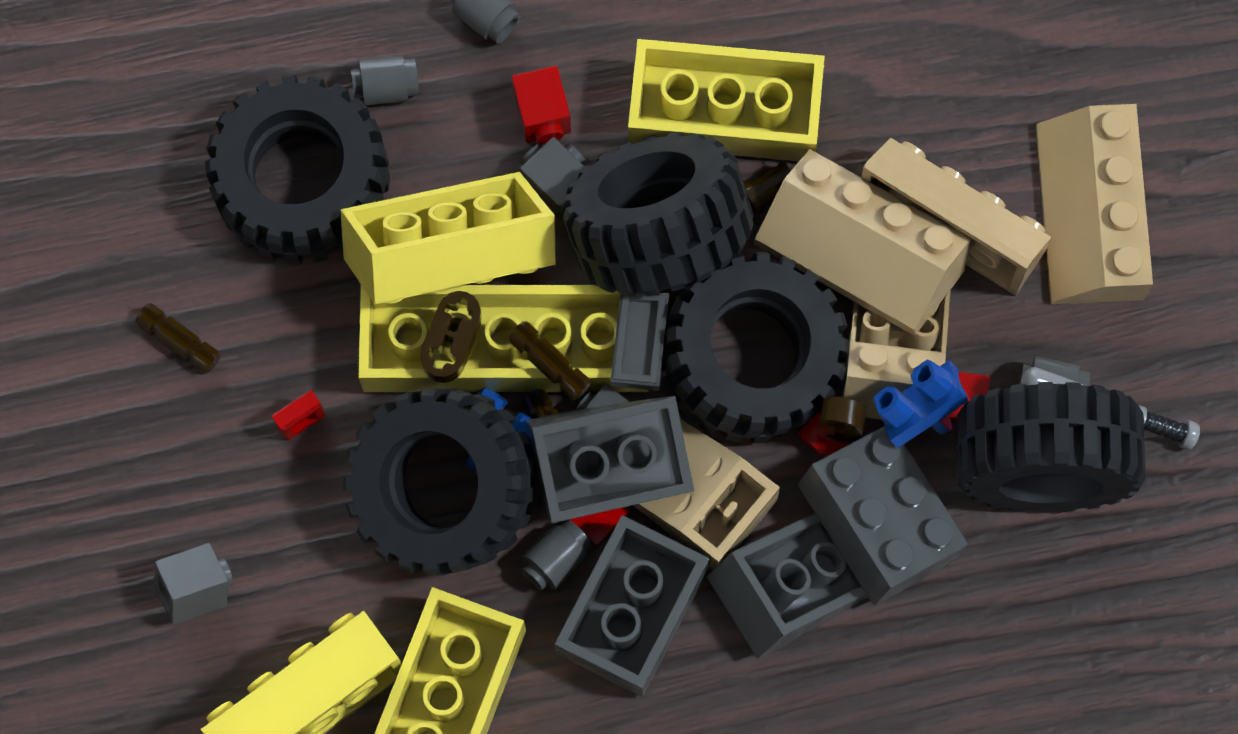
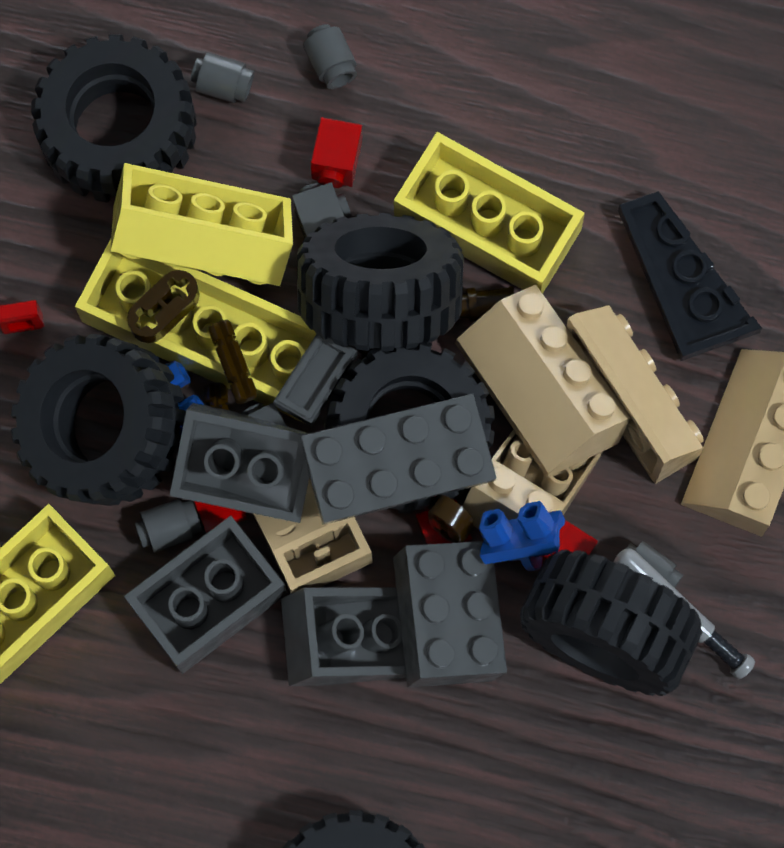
camera: 25 degrees right, 0 degrees up
(765, 382) = (397, 459): none -> dark grey plate
(960, 91) = (687, 289): none -> black wing

